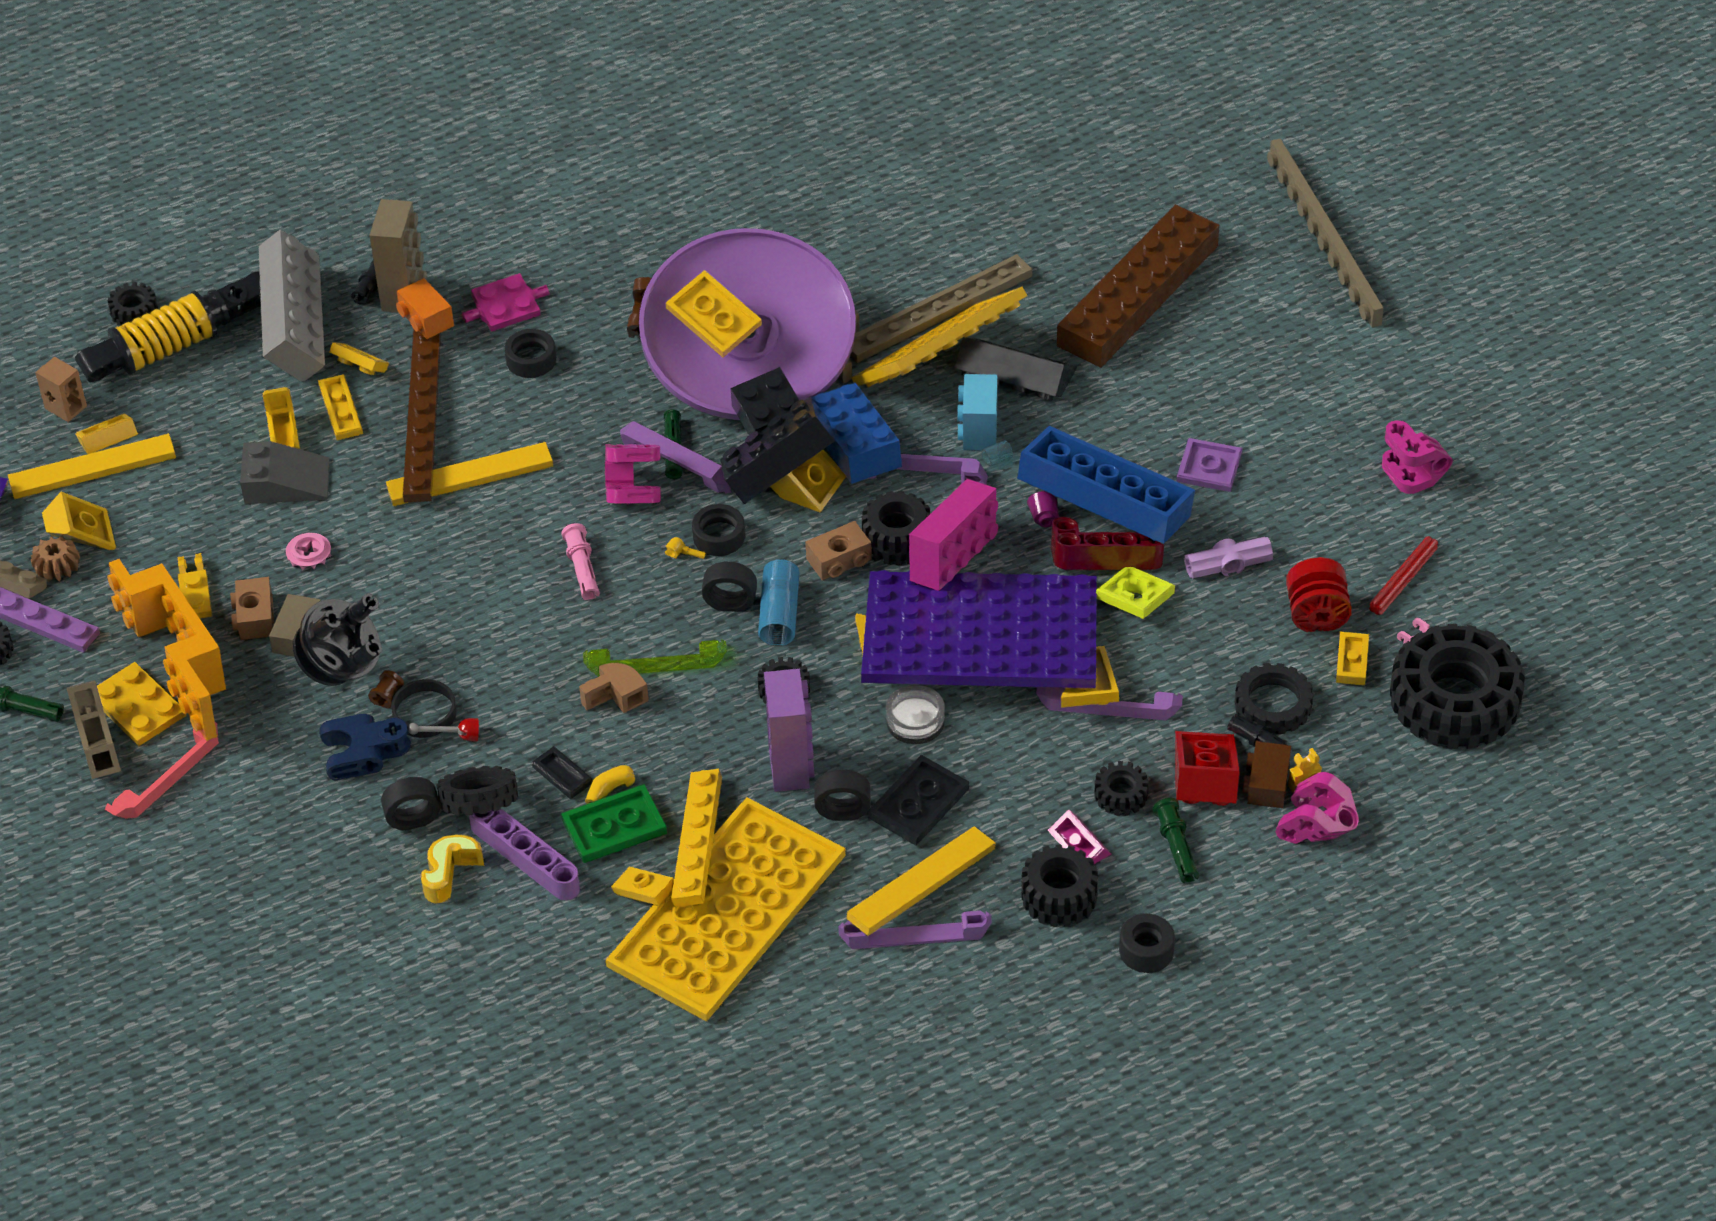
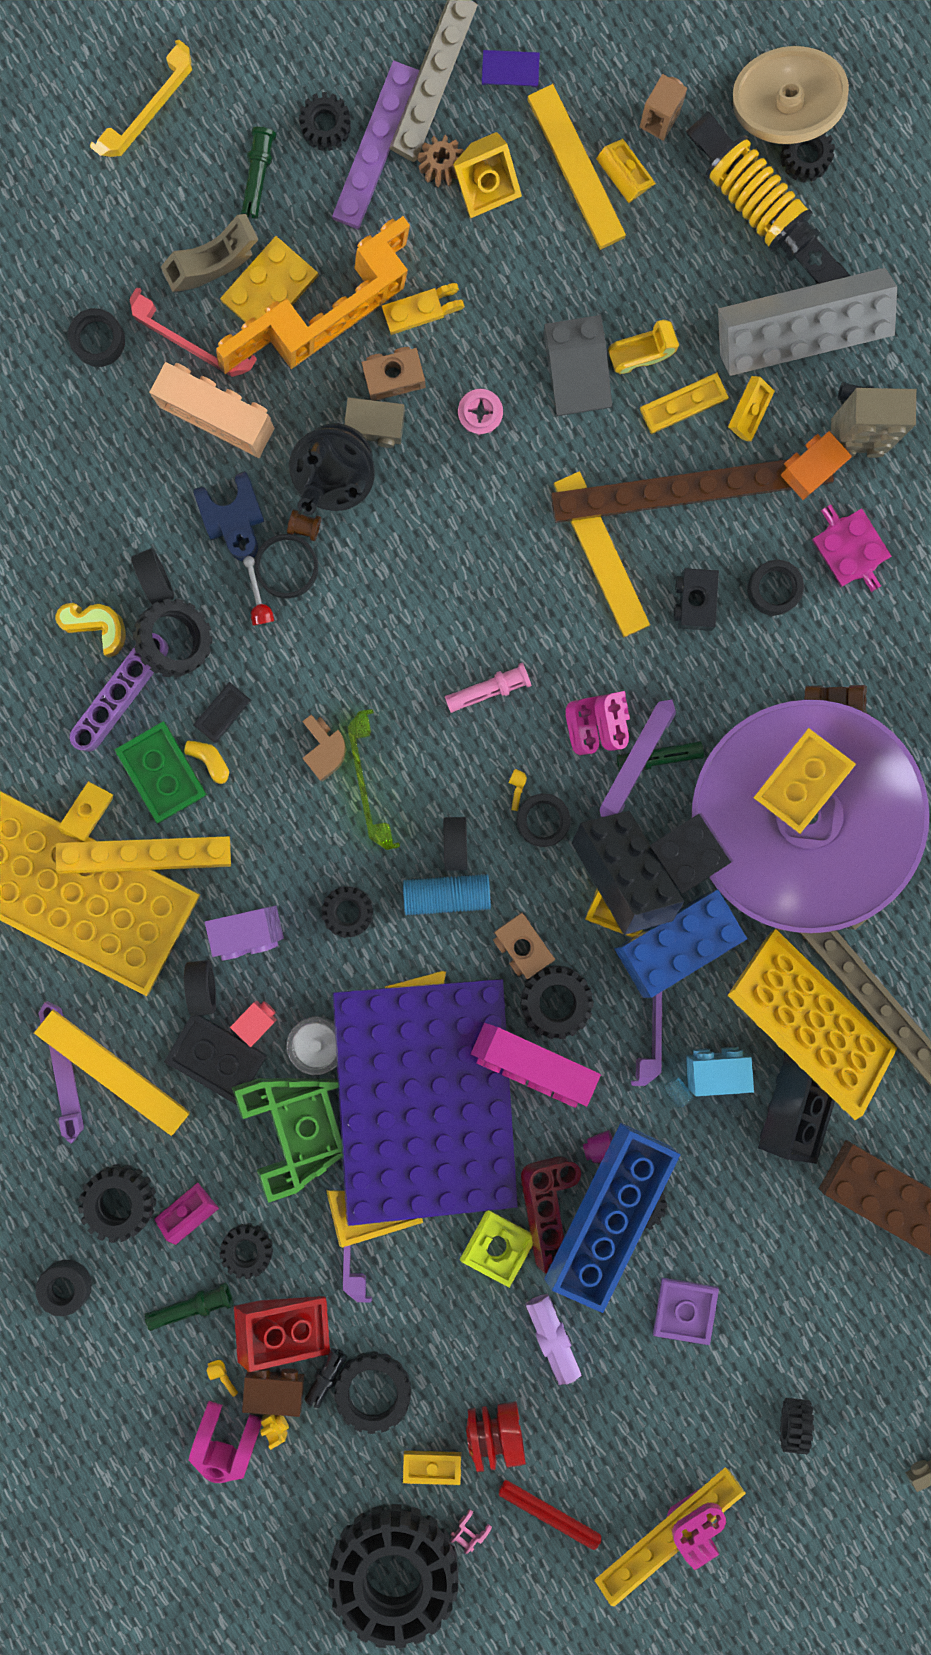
camera: 80 degrees right, 40 degrees up
(77, 306) = (790, 95): none -> tan dish
(151, 860) = (87, 317): none -> black tyre
(252, 740) = (212, 409): none -> light nougat brick
(529, 405) = (704, 584): none -> black brick
(885, 762) = (254, 1022): none -> coral brick
(997, 718) = (303, 1127): none -> bright green wedge
(1246, 823) = (217, 1370): none -> yellow hand
(1321, 374) = (796, 1426): none -> black tyre
(1425, 483) = (659, 1544): none -> yellow plate

